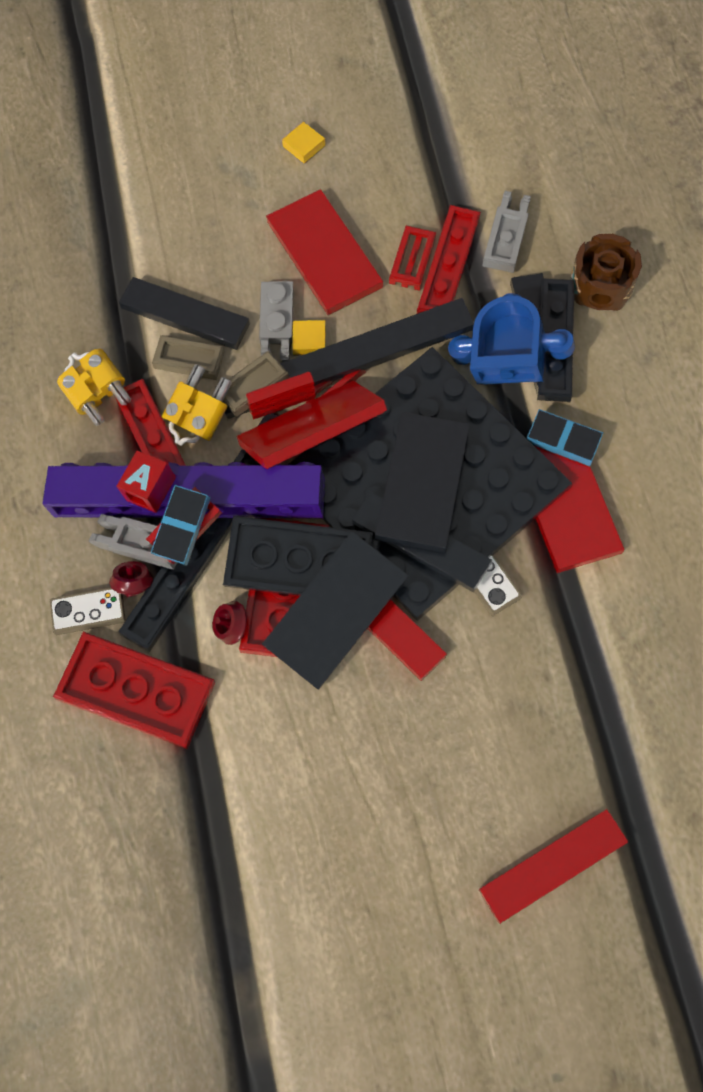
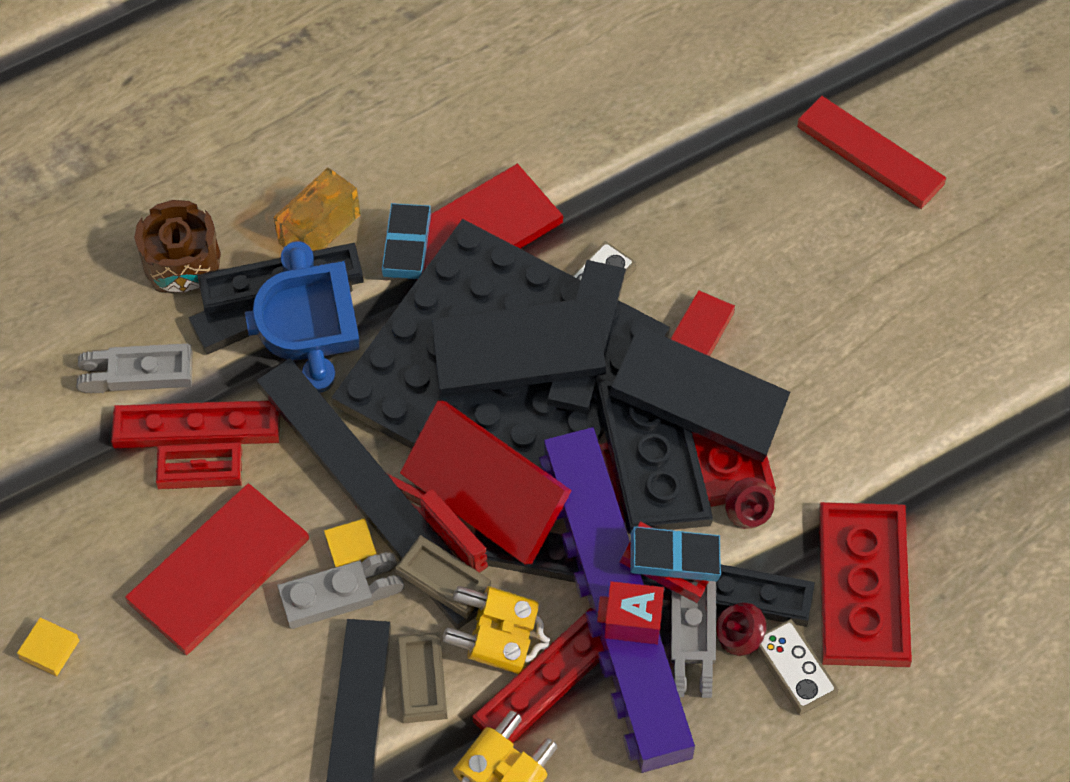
camera: 110 degrees left, 10 degrees down
(609, 378) = (318, 212): none -> clear yellow brick

